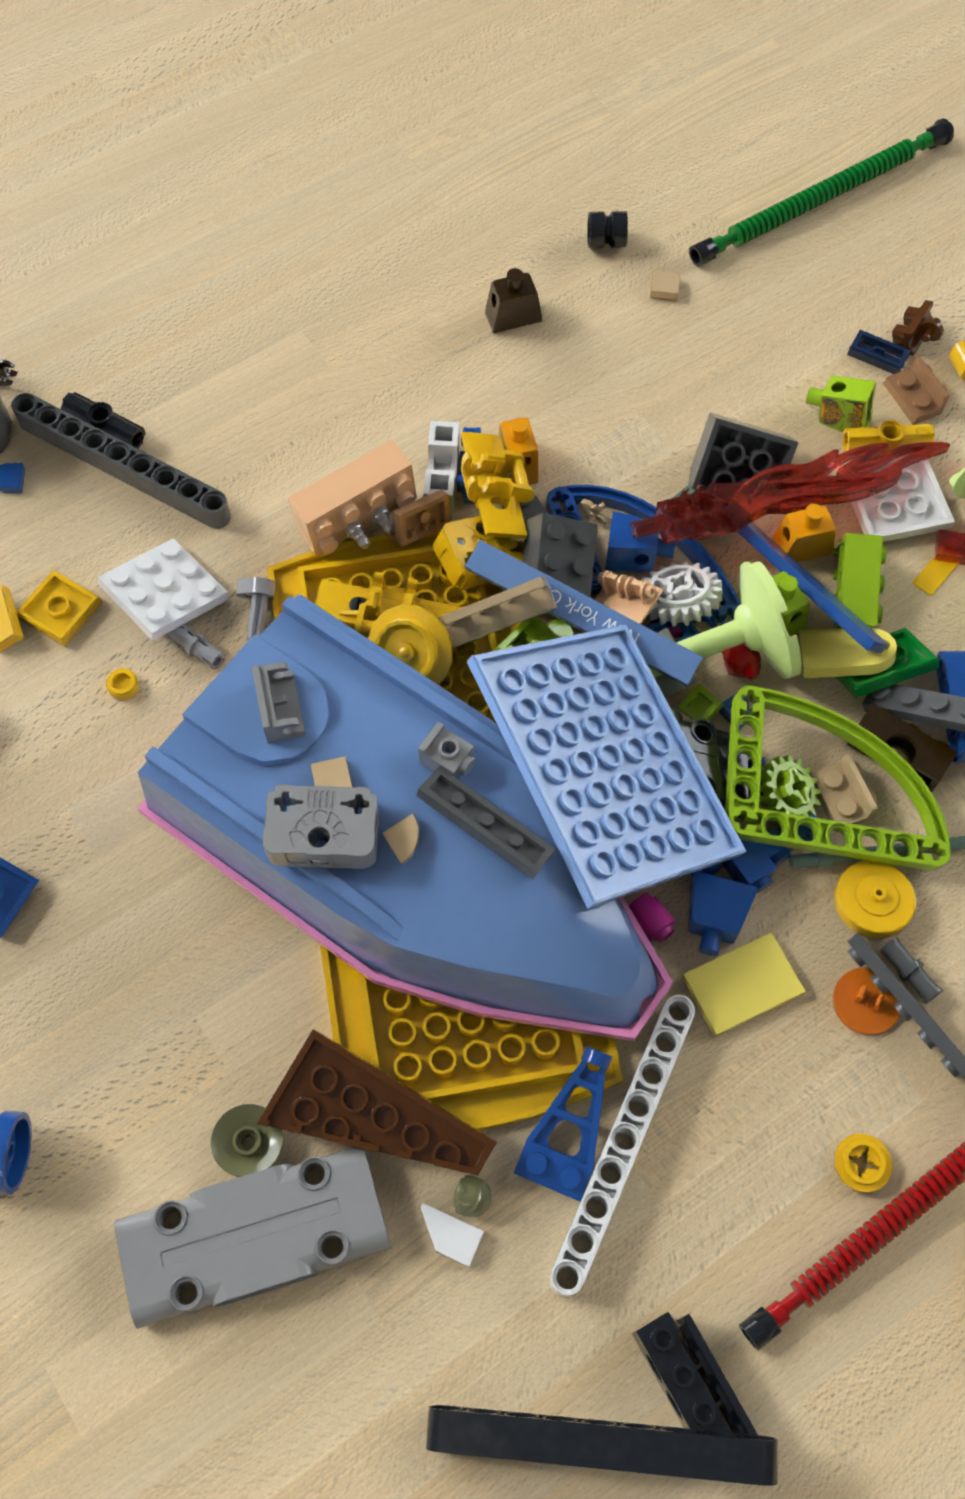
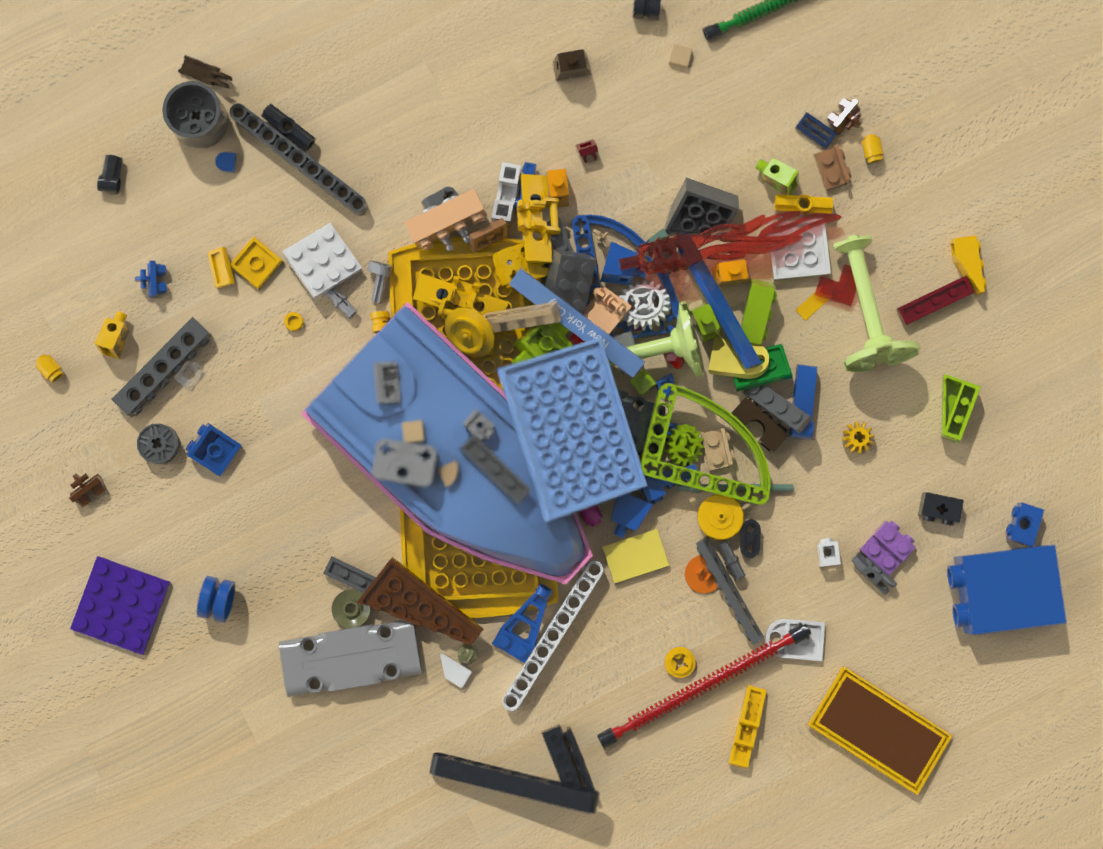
camera: 10 degrees right, 20 degrees up
(236, 1078) = (348, 574): none -> dark grey plate
(554, 403) = (587, 148): none -> dark red tile
(936, 930) = (750, 538): none -> black plate

